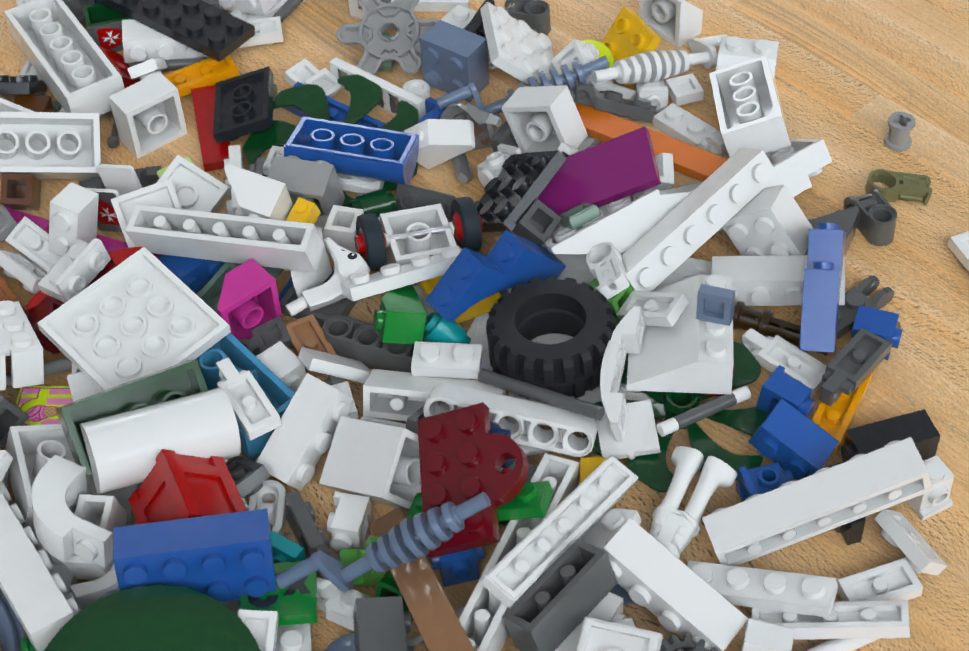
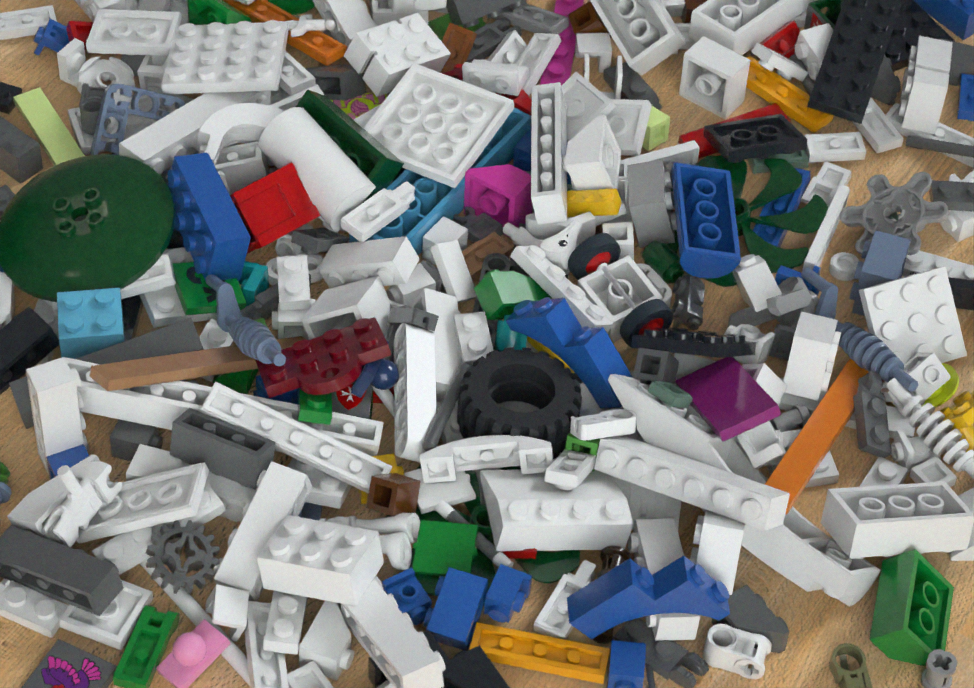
camera: 70 degrees right, 0 degrees up
(46, 192) = (597, 46): none -> white panel
(72, 218) = (544, 55): white brick -> none
(271, 55) = (835, 147): none -> white plate
(309, 504) = (293, 282): none -> white plate
(410, 400) = (413, 317): none -> dark grey piece
(648, 460) = (393, 494): none -> reddish brown brick
(715, 304) = (562, 496): sand blue plate -> none
(719, 433) = (444, 546): none -> green piece
(739, 531) = (320, 560): none -> white brick
(808, 556) = (327, 642): none -> white slope
(842, 136) = (911, 609): none -> green slope
(853, 365) = (563, 644): dark grey hinge -> none
(862, 254) = (736, 650): none -> white piece
(875, 217) = (796, 658): dark grey piece -> none

